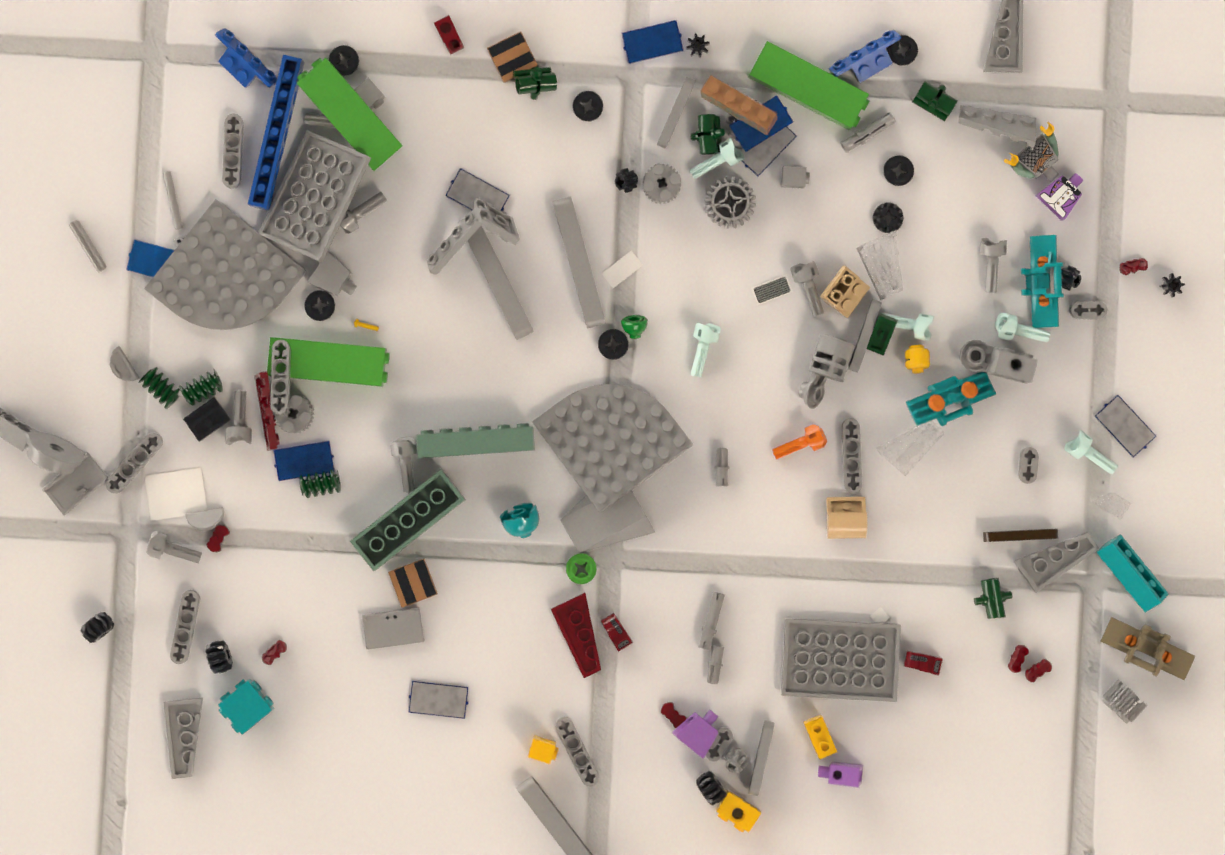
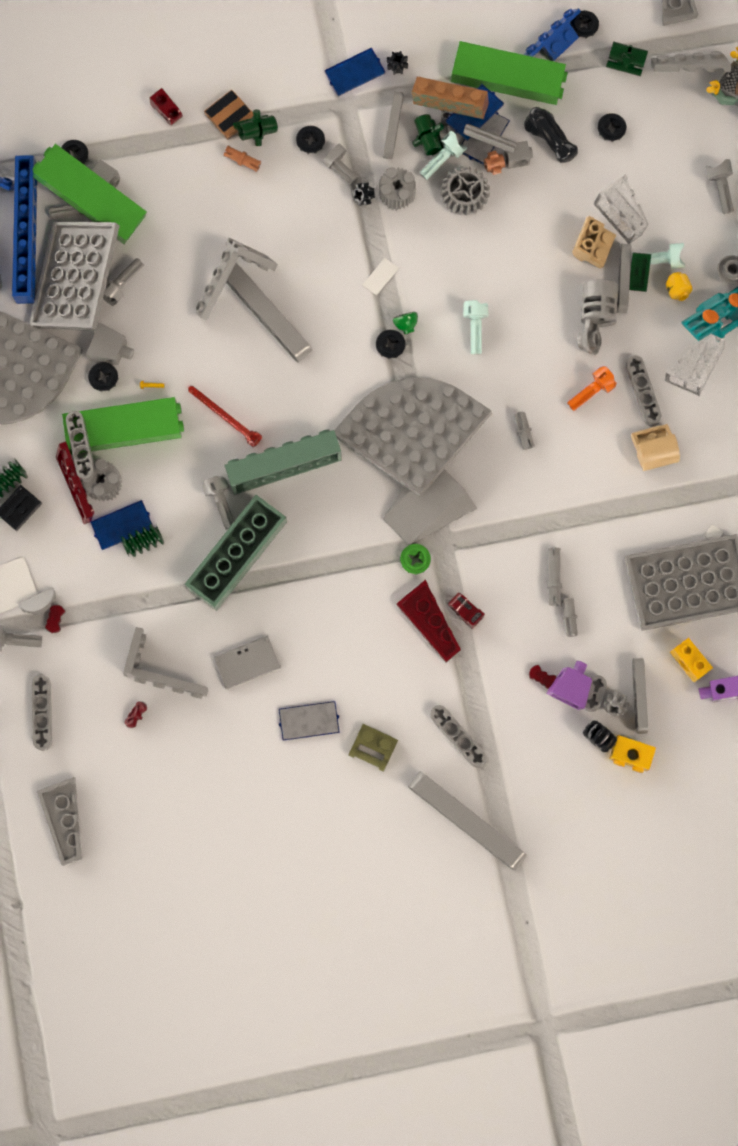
camera: 20 degrees left, 10 degrees down
(219, 657) = (81, 731): black gear -> none
(239, 431) = (51, 510): light grey piece -> none
(245, 705) = (119, 773): teal brick -> none
(303, 626) = (159, 681): none -> light grey bracket
(413, 583) = (255, 613): tile -> none
(451, 404) = (252, 437): none -> clear red piece
(468, 188) = (215, 238): flat silver piece -> none
(497, 736) = (375, 741): none -> olive plate
(513, 109) = (242, 158): none -> nougat pin
(521, 520) = (346, 526): teal cylinder -> none
(543, 749) = (425, 740): yellow brick -> none
(579, 262) = (339, 278): light grey beam -> none
(605, 136) = (333, 160): none -> light grey piece
(767, 180) = (494, 162): none -> nougat gear
(768, 157) = (489, 138): none -> light grey axle
(771, 290) = (525, 261): sticker -> none
(806, 274) = (554, 236): light grey piece -> none
(827, 152) = (542, 124): none -> black hair
(861, 136) = (568, 106): light grey pin -> none
(881, 224) = (609, 176): black gear -> none

